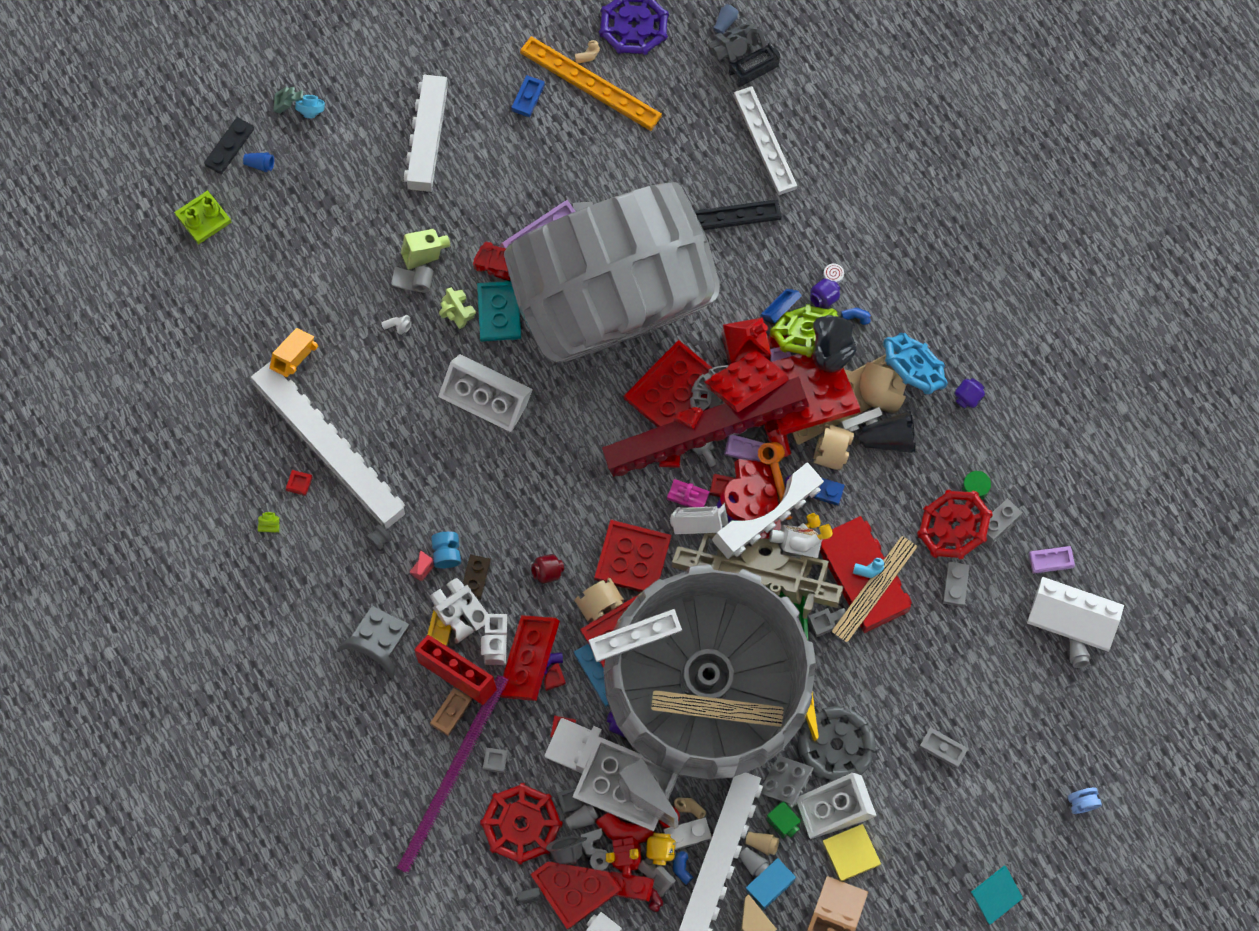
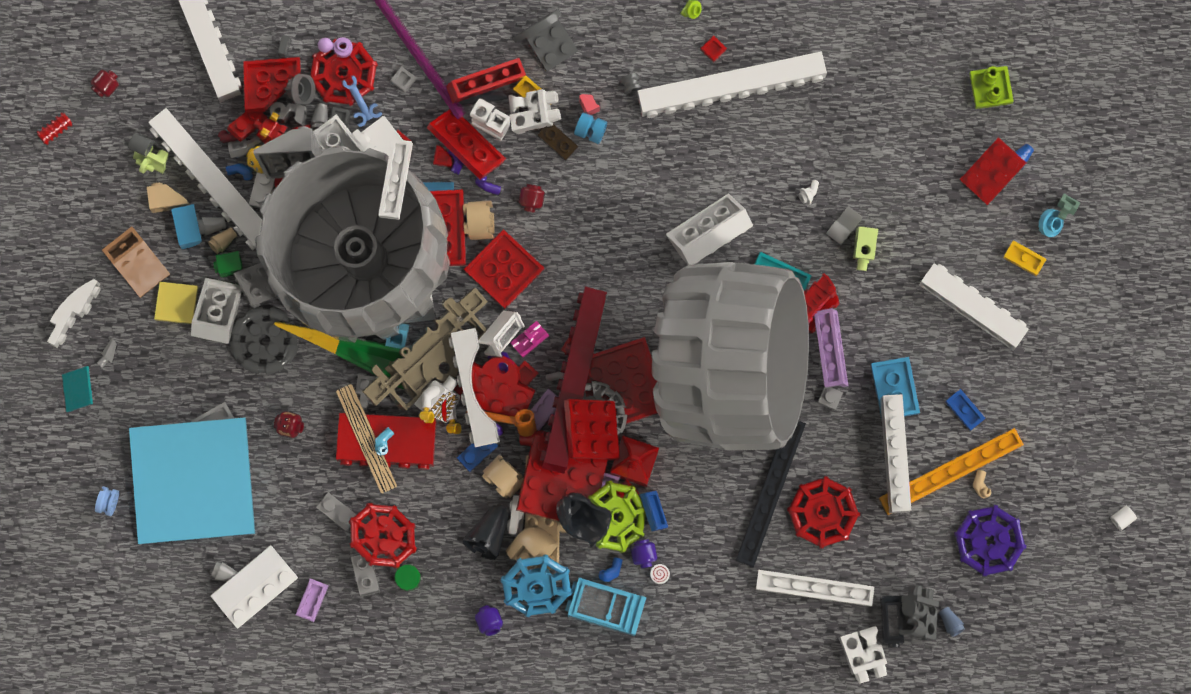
camera: 120 degrees right, 10 degrees up
(229, 145) = (1049, 141): black plate -> none
(287, 175) = (993, 171): none -> red plate
(292, 352) = (825, 93): light orange brick -> none
(355, 113) = (1024, 258): none -> yellow plate
(451, 712) = (457, 62): medium nougat plate -> none
(453, 307) = (805, 246): yellowish green hips -> none
(504, 850) = (326, 45): none -> lavender plate
(542, 162) = (896, 378): none -> dark azure plate
(549, 774) = (367, 113): none -> medium blue bar
(560, 615) = (488, 187): none -> dark purple arm
(605, 127) = (895, 453): none -> white brick
(689, 417) = (587, 367): red tile -> none
(696, 155) = (817, 521): none -> red plate
(717, 708) = (322, 235): tan sticker -> none
(804, 72) = (862, 660): none -> white hips
(892, 300) = (605, 606): none -> door
(904, 672) = (288, 424): none -> dark red head
(942, 890) = (108, 353): none -> light grey bar
(1013, 733) = (192, 480): none -> medium azure tile

